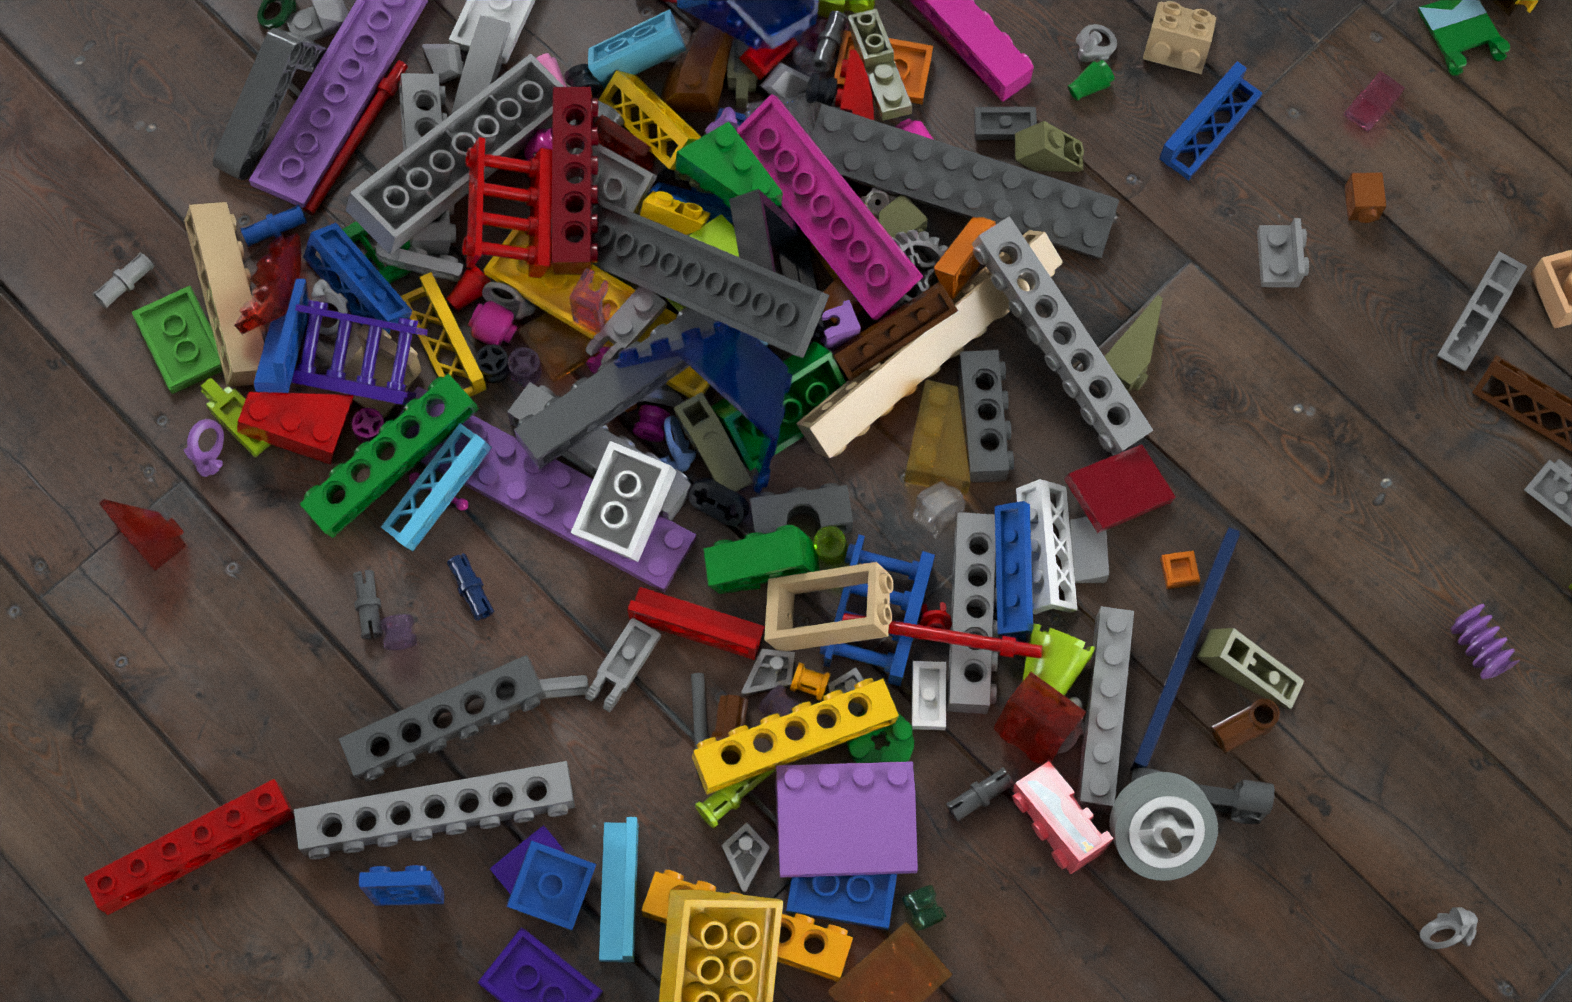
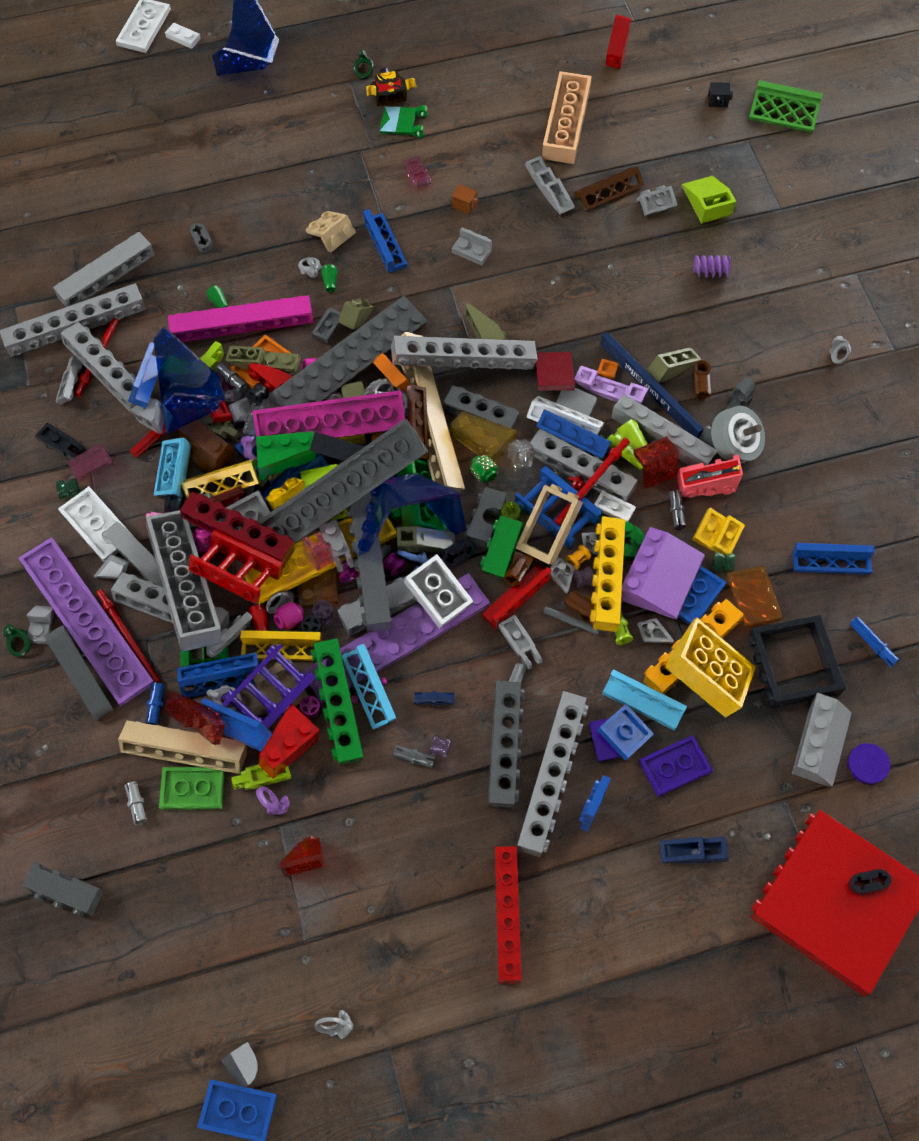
camera: 60 degrees left, 5 degrees down
(739, 601) = (519, 566): none -> reddish brown piece
(882, 469) = (484, 468): none -> green head
(977, 877) = (718, 532): none -> yellow slope
(1144, 586) = (608, 388): none -> lavender slope

